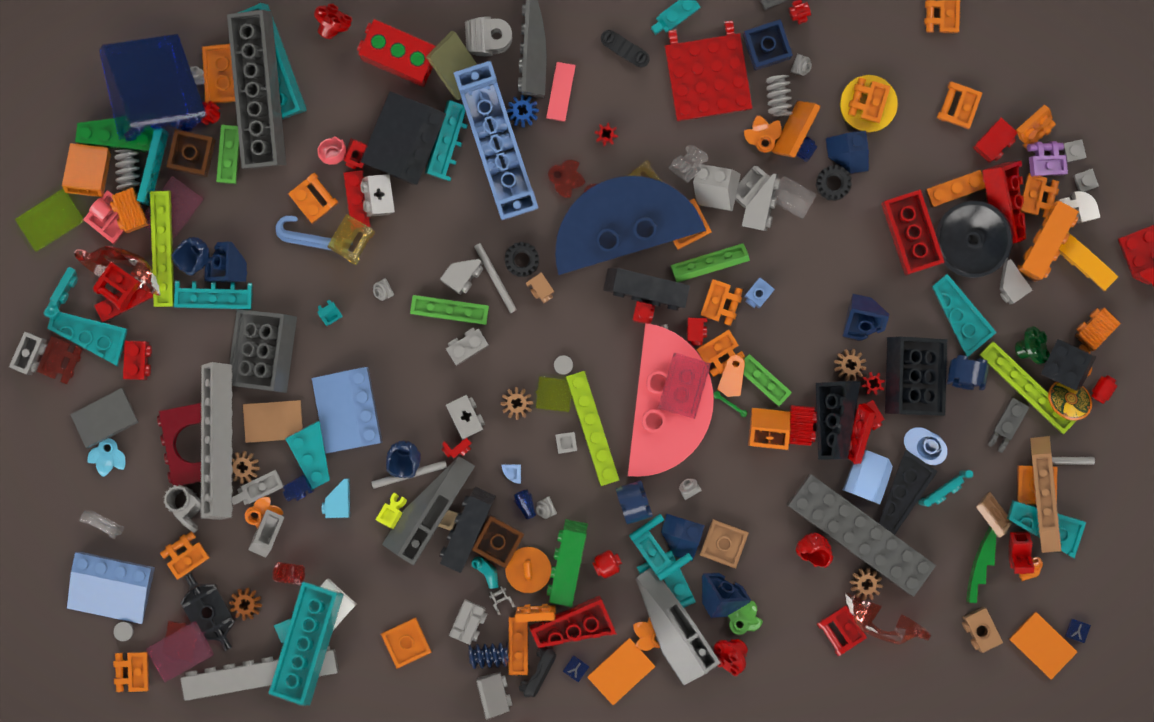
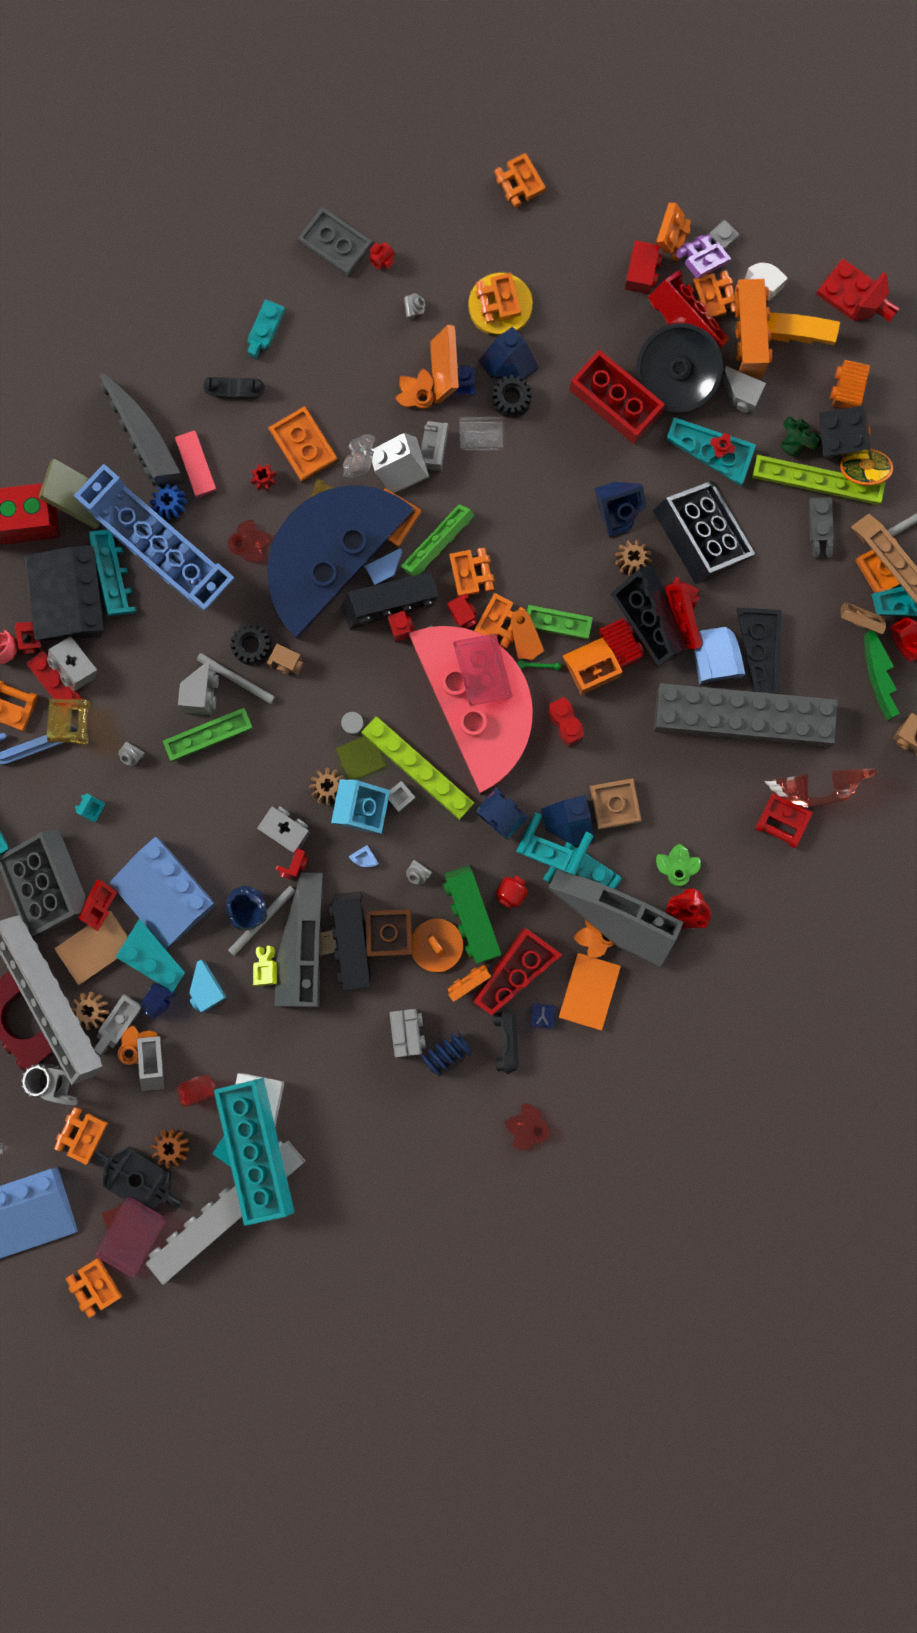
camera: 15 degrees left, 5 degrees down
(123, 631) = (61, 1250): light grey tile -> none
(292, 391) = (96, 905): none -> red slope
(406, 643) = (356, 1091): orange tile -> none
(466, 347) = (246, 759): light grey brick -> none
(479, 36) = (92, 448): light grey piece -> none
(487, 569) = (397, 969): teal arm -> none
(493, 595) = (419, 986): light grey piece -> none
(494, 694) = (476, 1090): light grey slope -> none
(518, 647) = (471, 1028): orange tile -> none
(525, 503) = (394, 880): clear blue cone -> none
(532, 434) = (360, 806): none -> medium azure brick
(652, 125) = (303, 444): none -> orange tile
(657, 259) = (384, 568): none -> medium blue tile
(689, 488) = (548, 770): light grey plate -> none
(708, 75) = (329, 366): red plate -> none
(721, 596) = (644, 857): dark blue slope -> none
(724, 454) = (563, 717): none -> red brick
(758, 293) = (502, 541): medium blue brick -> none
(759, 209) = (454, 462): light grey slope -> none
(767, 45) = (369, 303): dark blue brick -> none
(778, 94) = (407, 345): light grey piece -> none
(815, 549) = (709, 755): red hair -> none
(867, 384) = (662, 566): red gear -> none
(869, 589) = (785, 767): medium nougat gear -> none
(925, 445) = (755, 590): medium blue piece -> none
(951, 486) = (804, 615): teal plate -> none
(956, 188) = (633, 335): orange plate -> none
(965, 108) = (595, 254): orange plate -> none
(966, 323) = (722, 451): none -> red plate
(968, 373) = (752, 497): dark blue brick -> none
(1086, 180) = (752, 255): light grey plate -> none
(1104, 389) = (892, 438): red brick -> none

